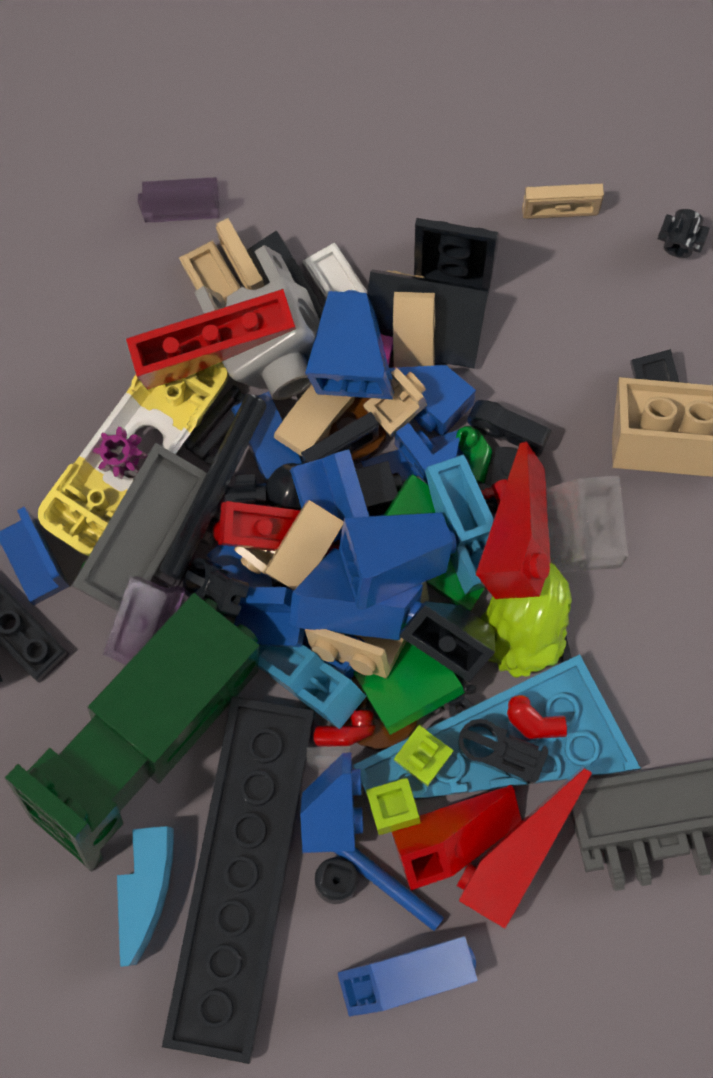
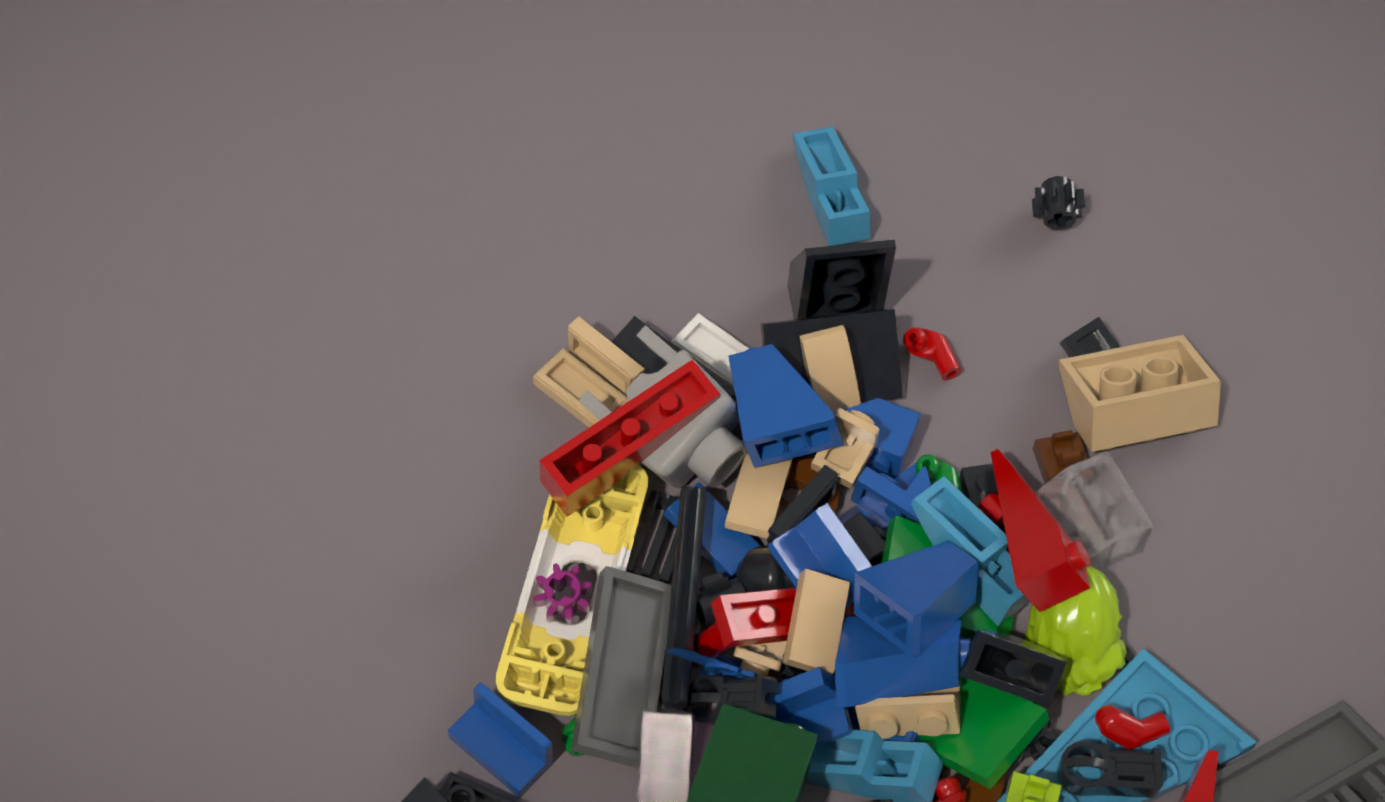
camera: 30 degrees left, 15 degrees down
(179, 200) = (508, 316): clear purple panel -> none
(220, 562) = (712, 665): none -> blue piece
(493, 161) = (832, 186): none -> dark azure slope
(506, 425) = (965, 442): black piece -> none
(518, 331) = (932, 347): none -> red arm
(562, 201) = (921, 205): tan tile -> none
(587, 460) = (1058, 453): none -> reddish brown tile

